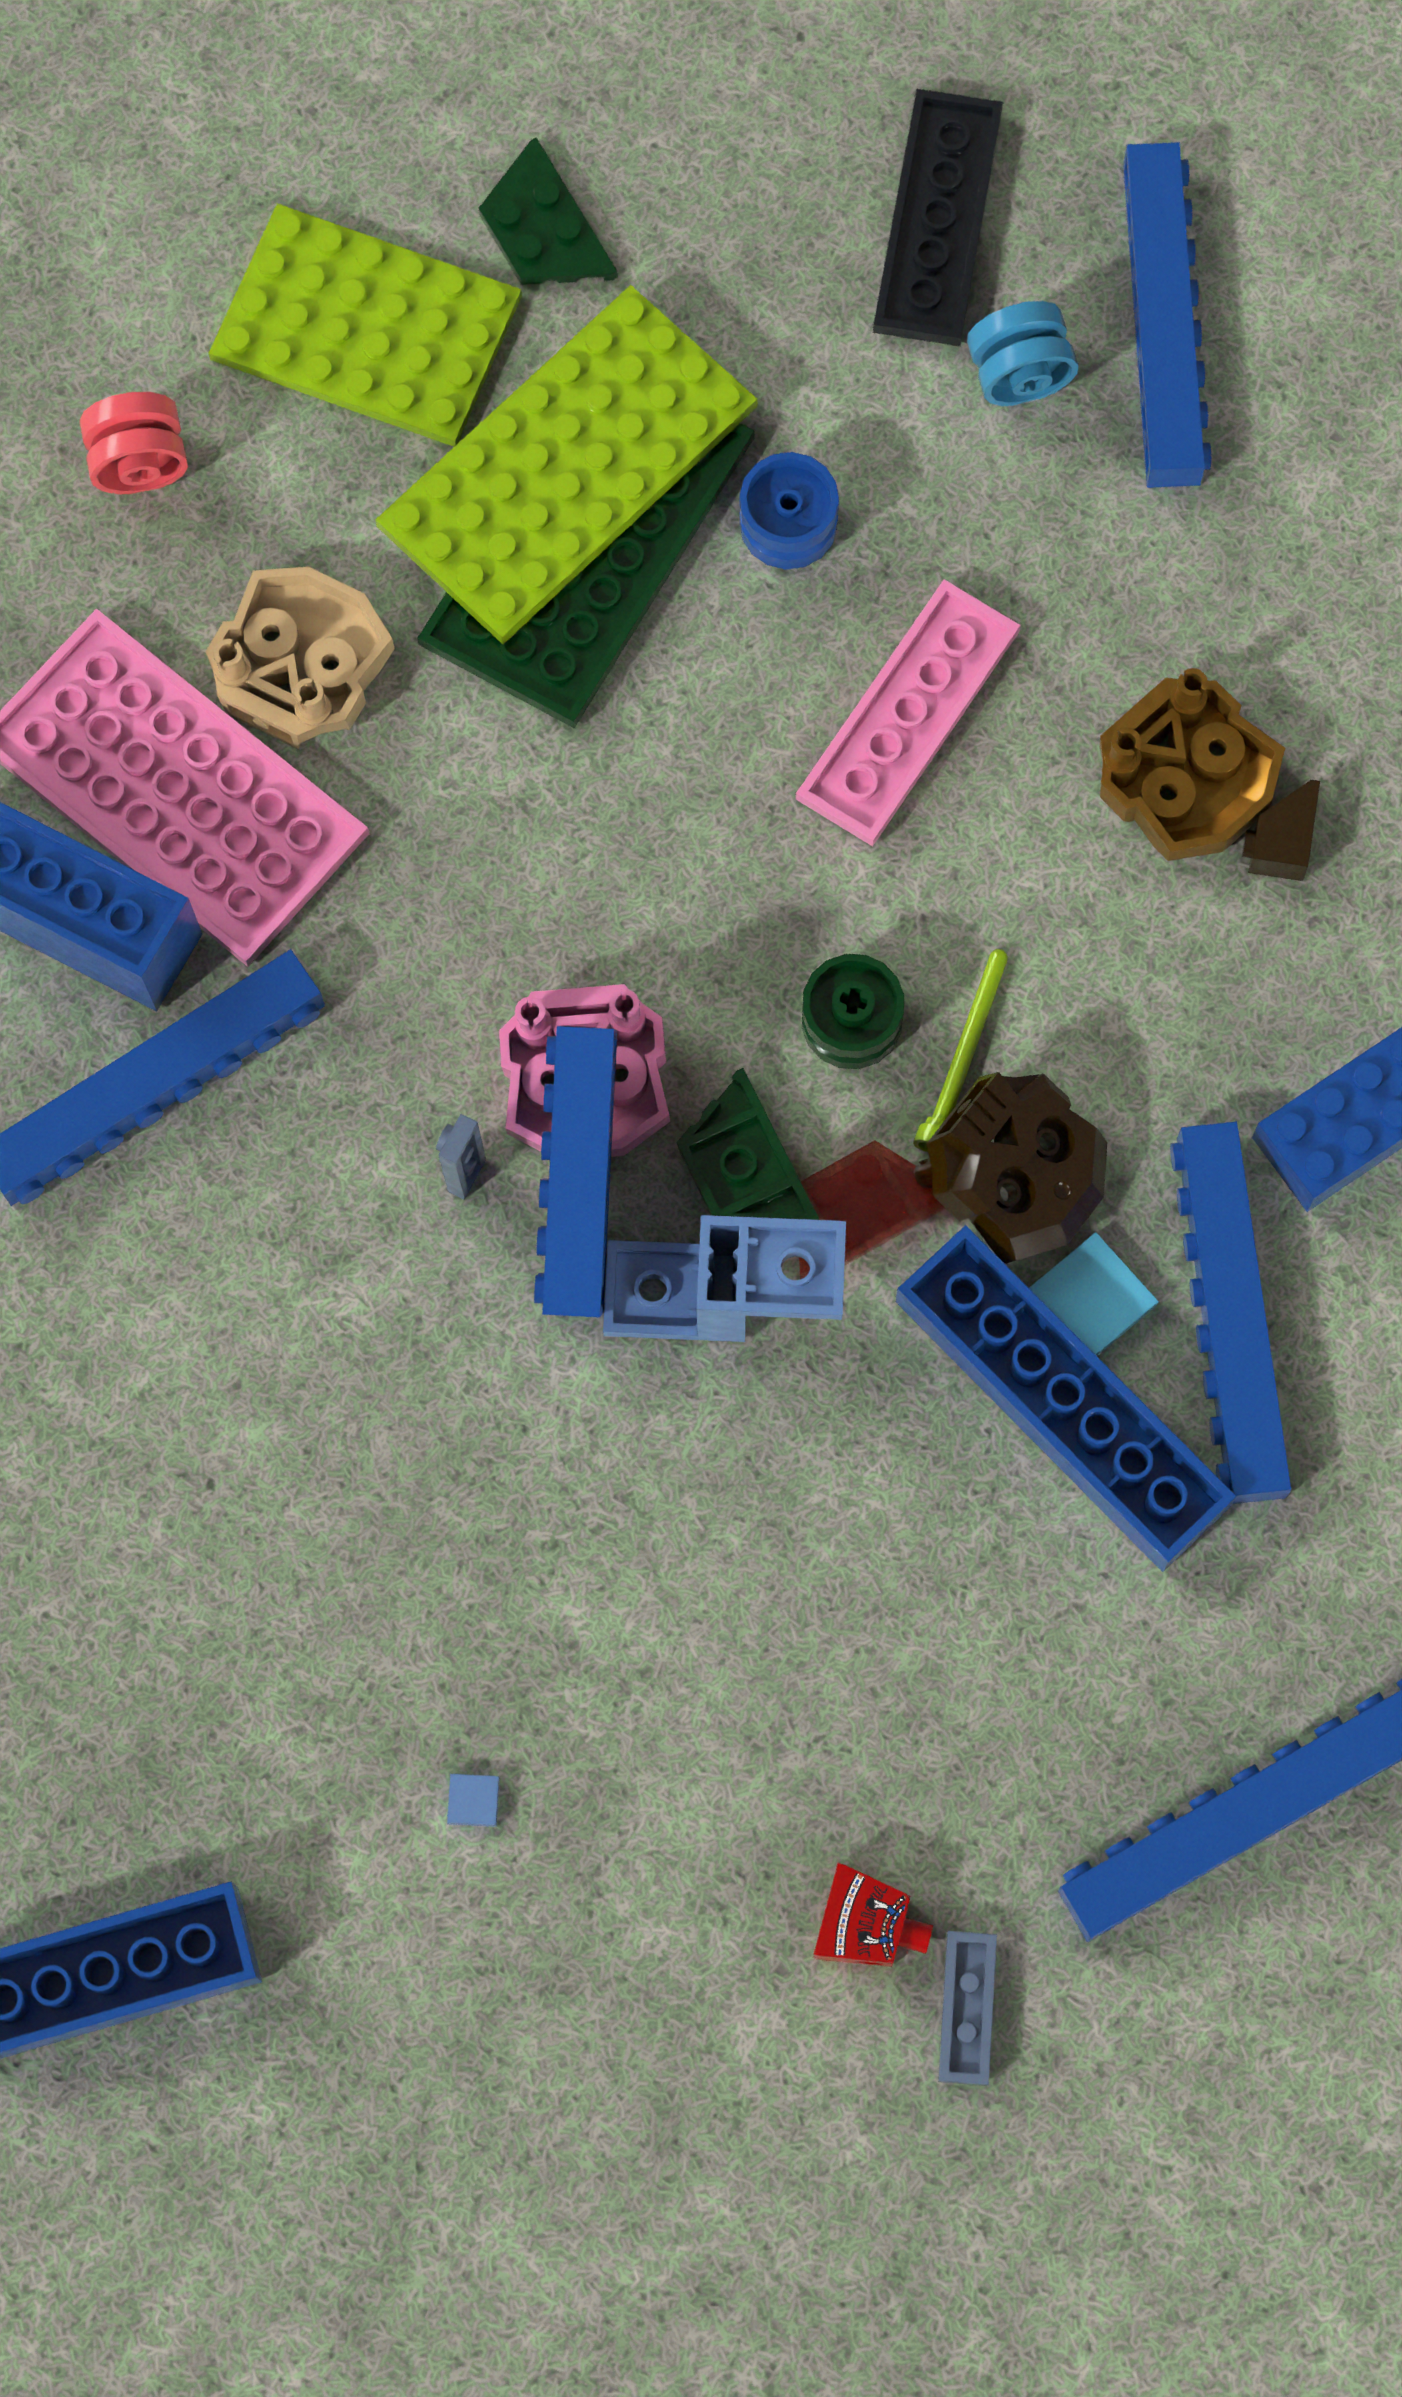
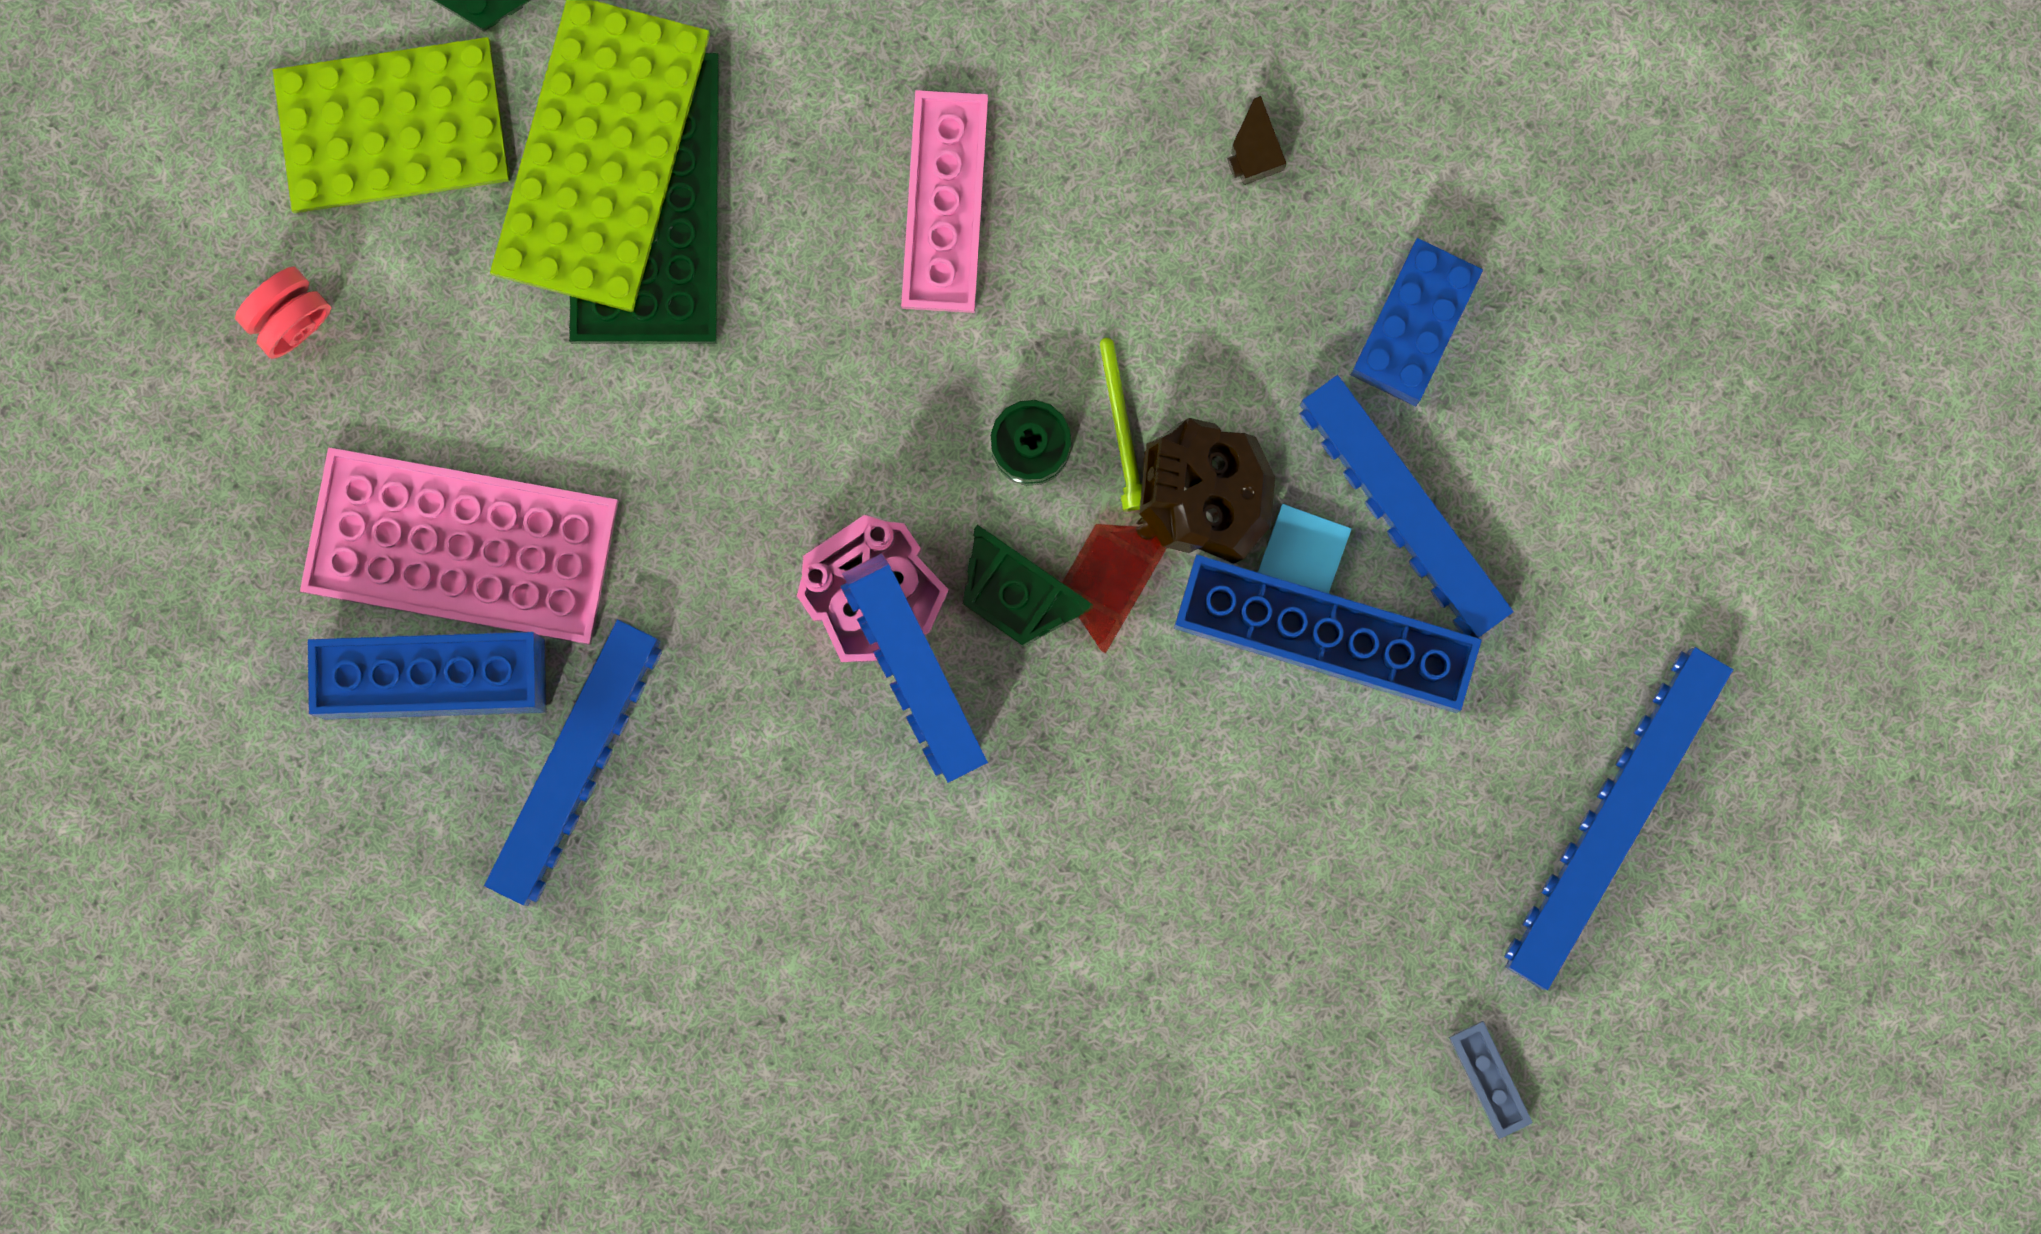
camera: 30 degrees left, 10 degrees up
(315, 624) = (492, 371): tan brick -> none
(461, 1155) = (824, 702): sand blue plate -> none
(473, 1800) = (1086, 1130): medium blue tile -> none
(725, 1278) = (1056, 685): medium blue bracket -> none
(788, 510) = (767, 82): blue wheel -> none
(867, 1922) = (1393, 1062): red torso -> none
(1213, 793) = (1191, 143): pearl gold brick -> none

